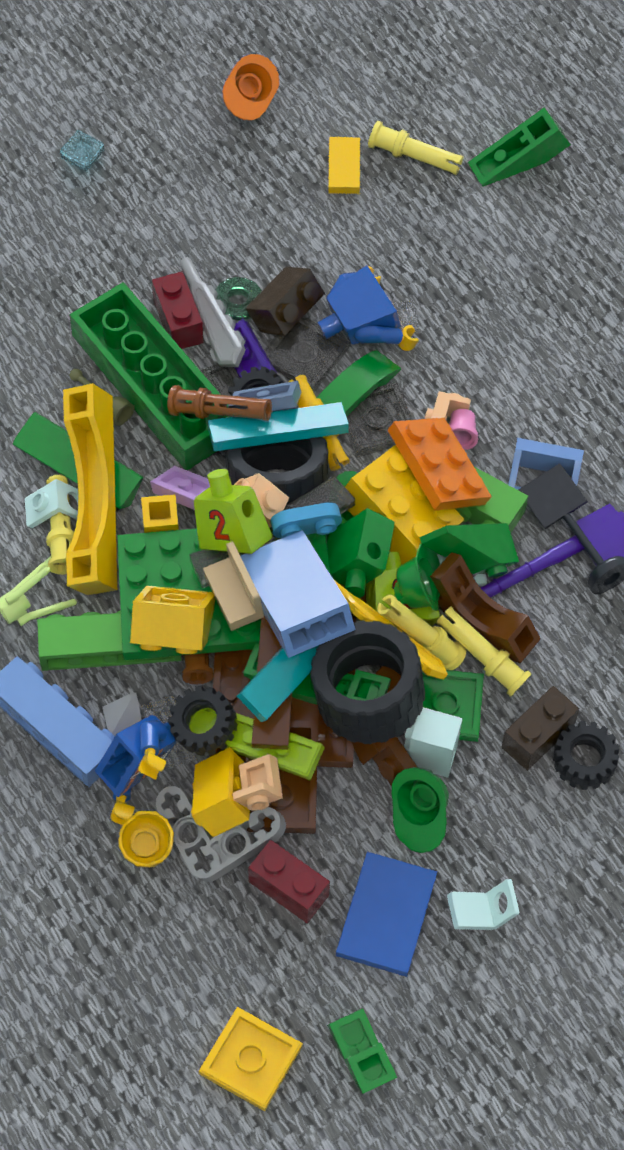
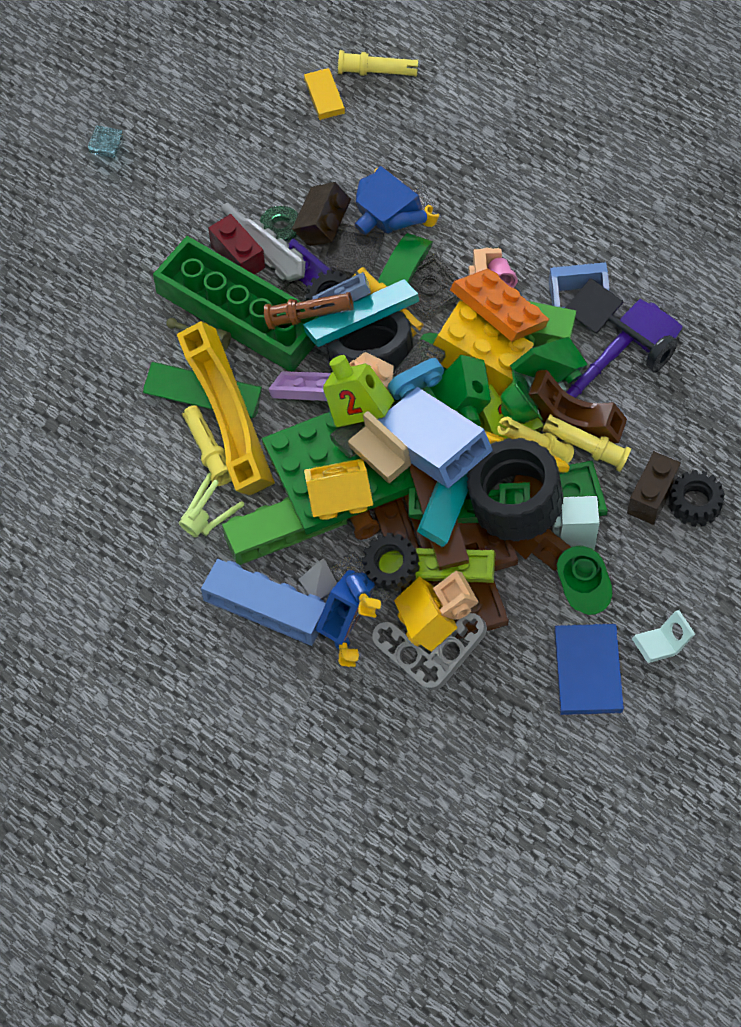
camera: 15 degrees left, 0 degrees up
(48, 502) = (193, 429): light aqua bracket -> none
(146, 839) = (378, 670): yellow hair -> none
(159, 513) = (288, 411): yellow brick -> none
(250, 87) = (226, 51): orange piece -> none
(250, 1058) = (525, 815): yellow tile -> none
(289, 881) = (503, 667): dark red brick -> none
(362, 1051) = (610, 781): green slope -> none
(521, 149) = (462, 41): green slope -> none

